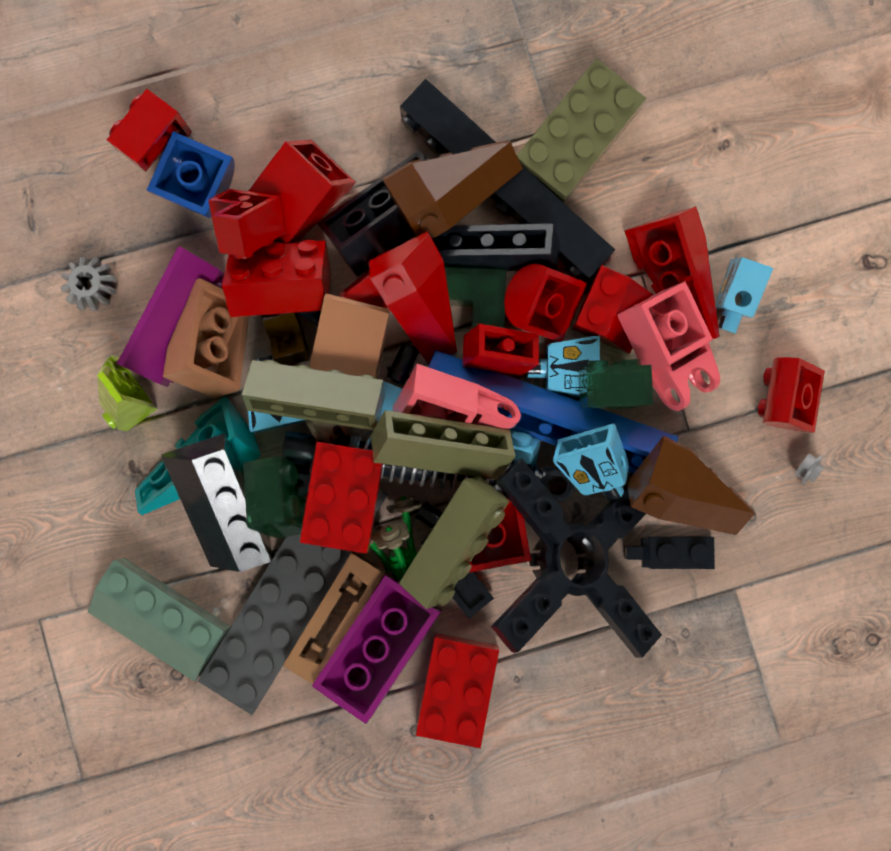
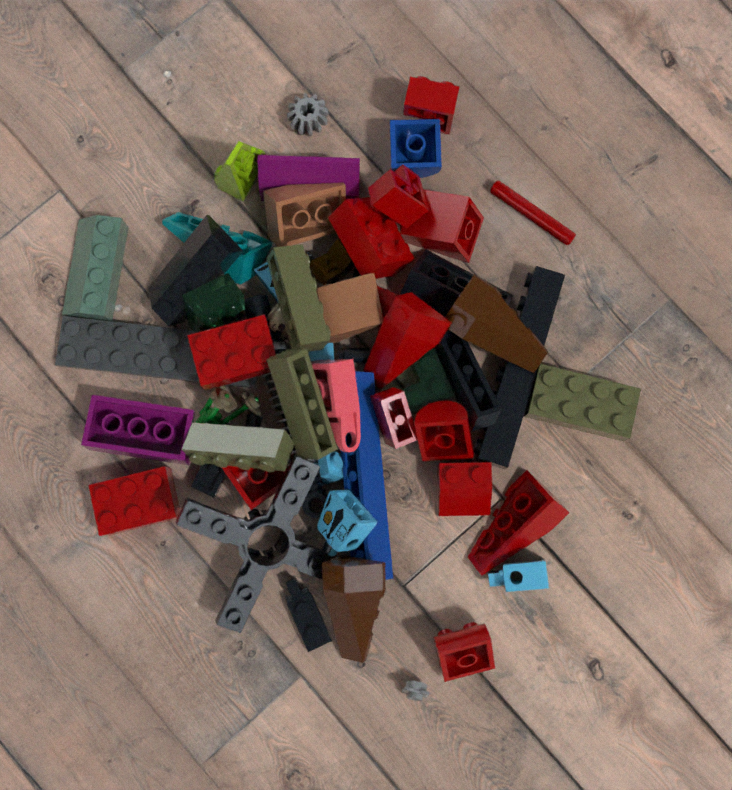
camera: 65 degrees right, 5 degrees down
(308, 664) = (190, 397): medium nougat brick -> none
(332, 81) = (532, 212): none -> red axle
(563, 364) = (407, 476): medium azure torso -> none
(615, 386) = (406, 512): clear green brick -> none
(673, 340) = (458, 540): coral brick -> none

